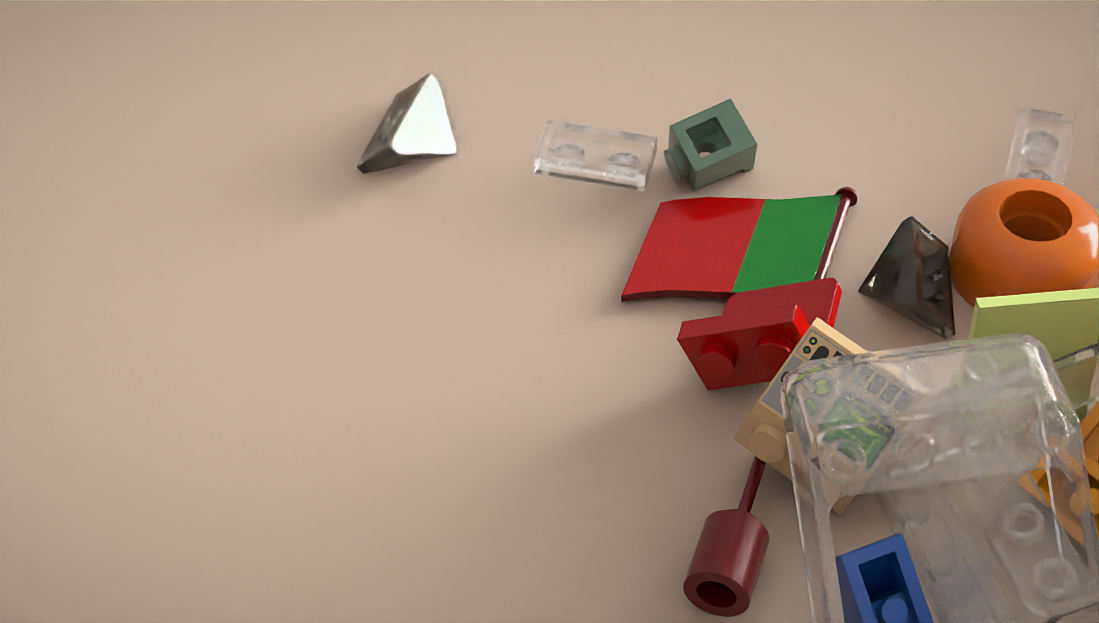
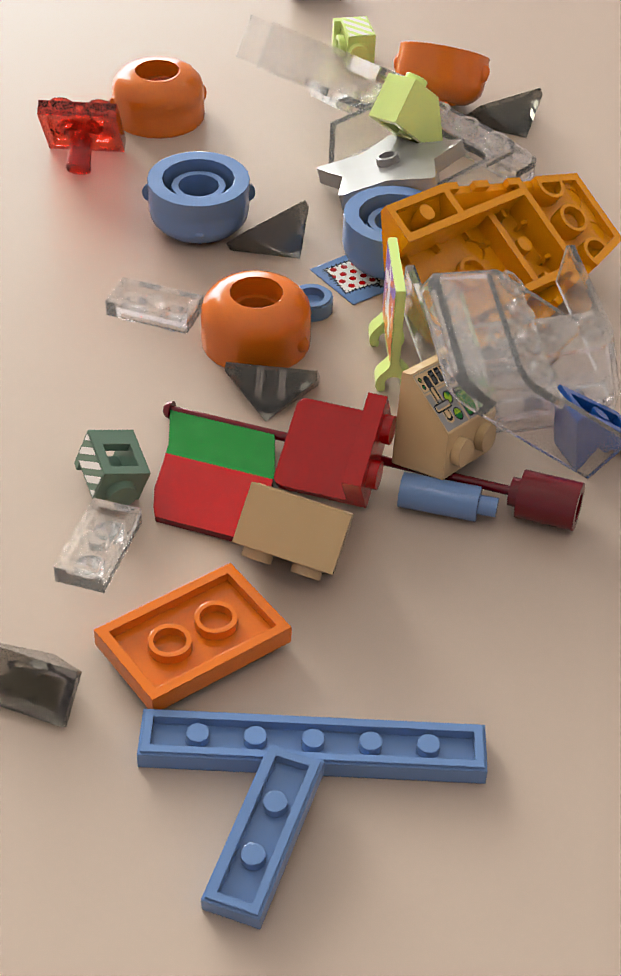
camera: 90 degrees left, 5 degrees down
(211, 313) = (263, 836): none -> medium blue tile
(328, 362) = (346, 744): none -> medium blue tile
(468, 241) = (192, 637): none -> orange plate
(629, 301) = (292, 529): none -> tan slope
(721, 457) = (445, 497): none -> medium blue cylinder

